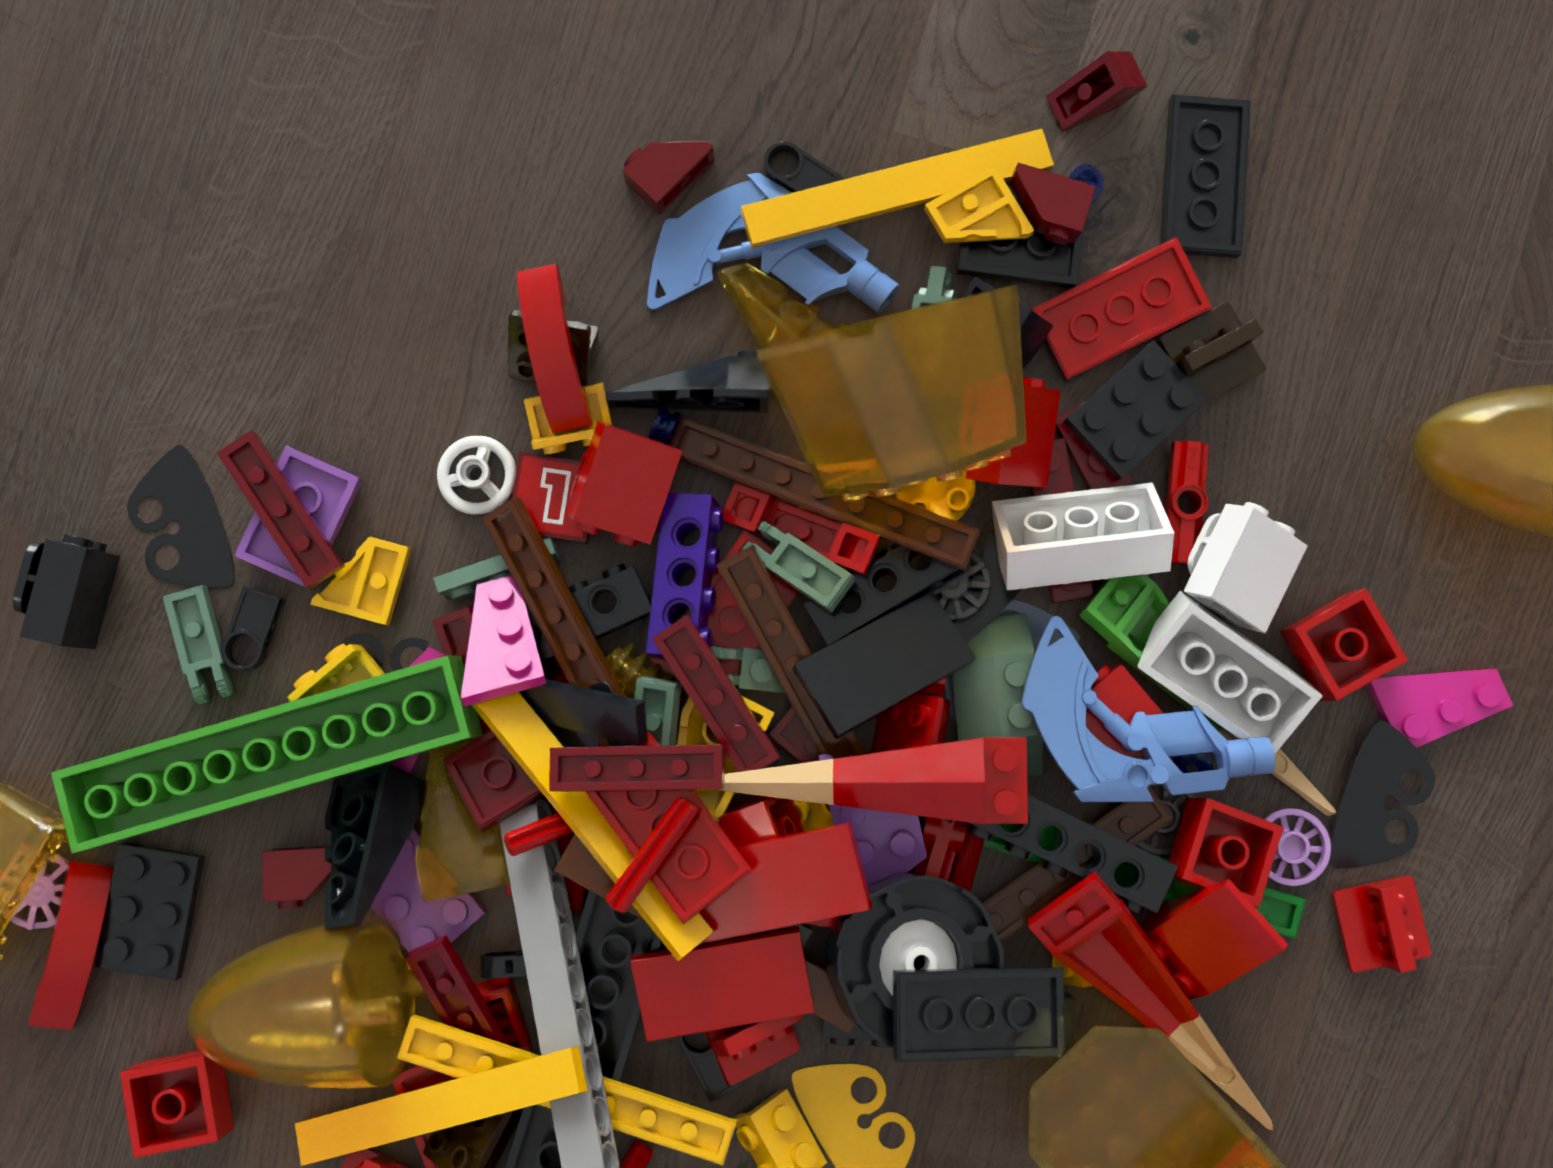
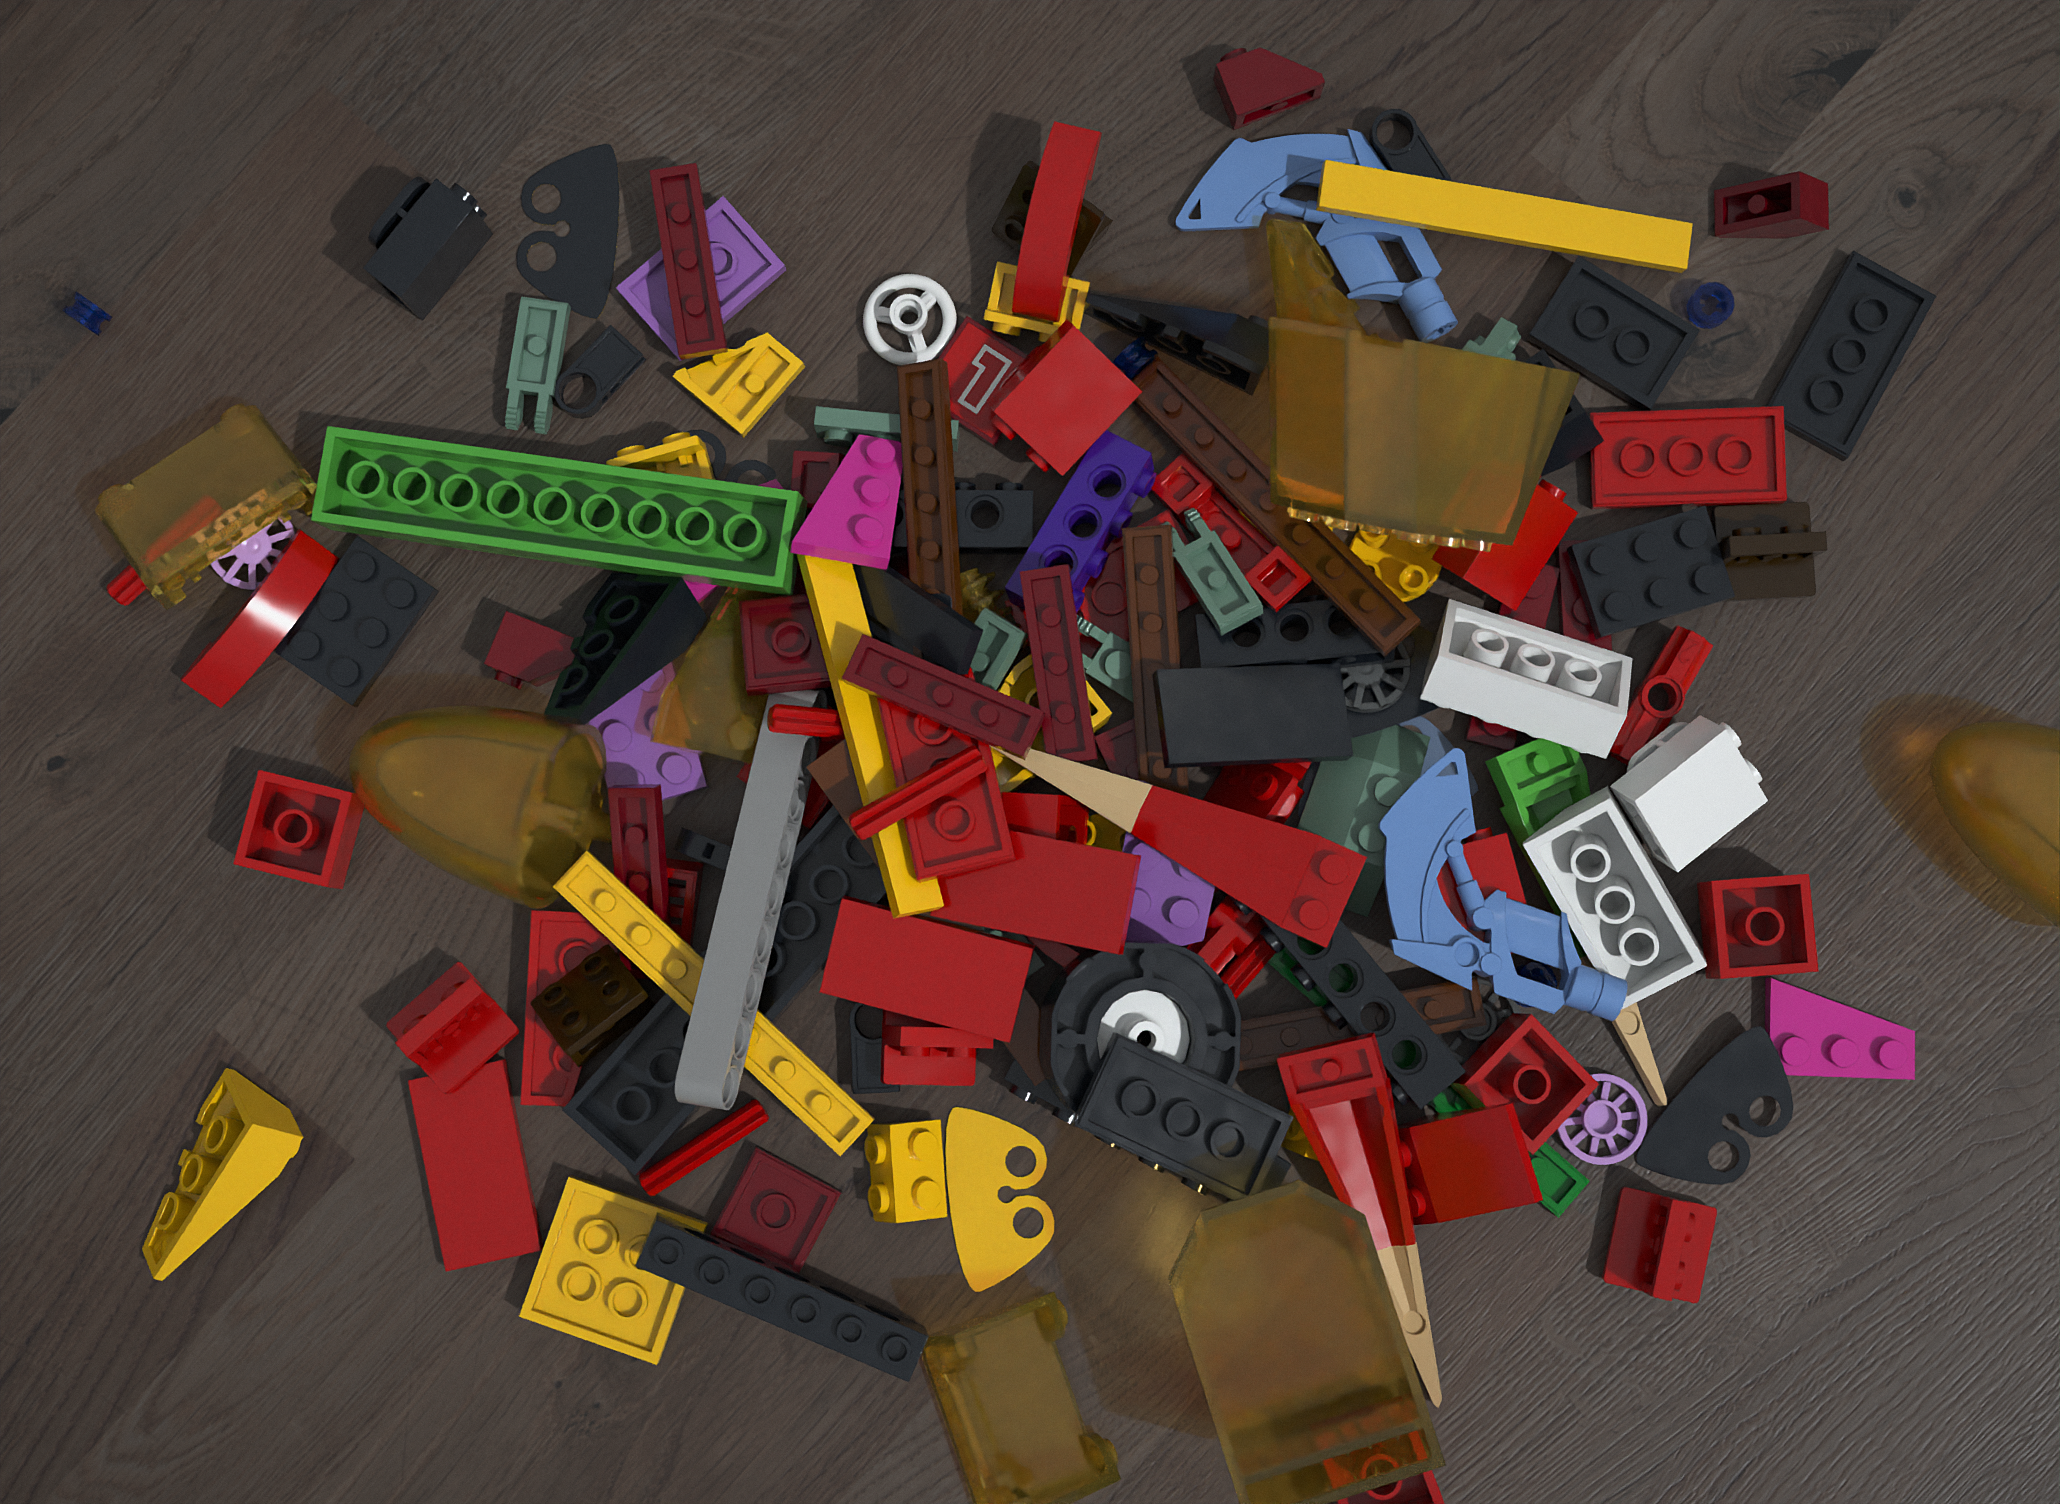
camera: 30 degrees right, 0 degrees up
(442, 1106) = (576, 956): yellow tile -> none
(979, 211) = (1580, 281): yellow wing -> none
(1052, 202) = (1664, 307): dark red slope -> none

